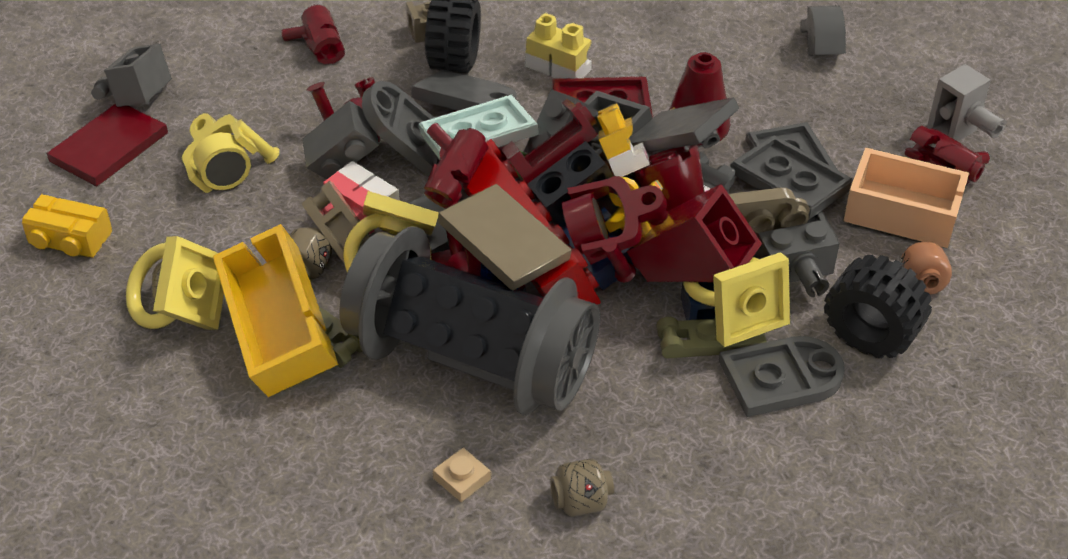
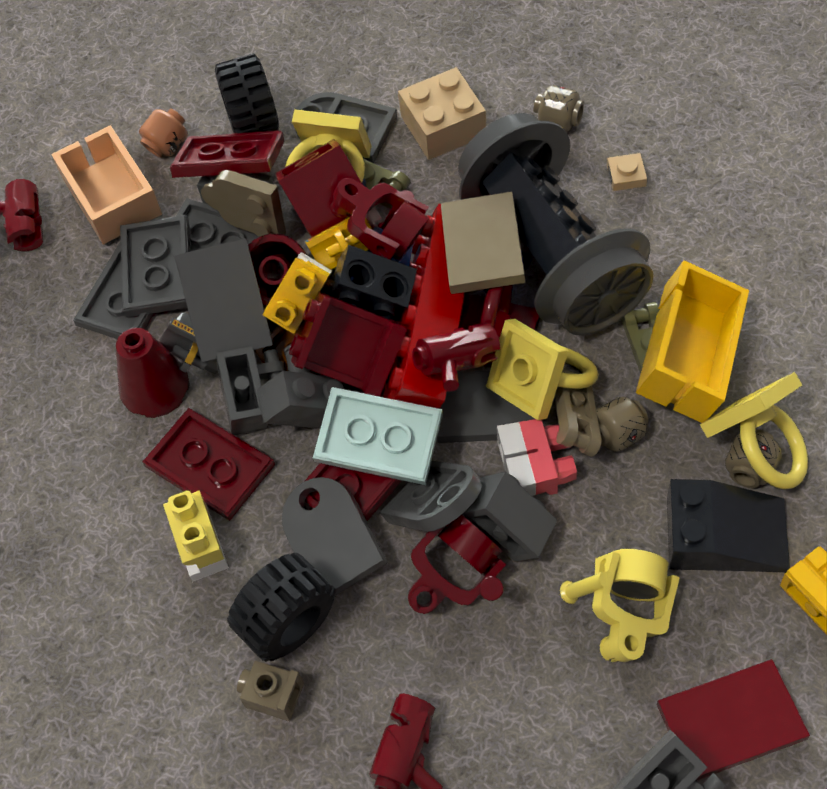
camera: 135 degrees left, 15 degrees up
(181, 210) = (725, 528): none -> black slope
(692, 417) = (442, 112): none -> tan brick
(823, 243) = (234, 152): none -> dark red tile

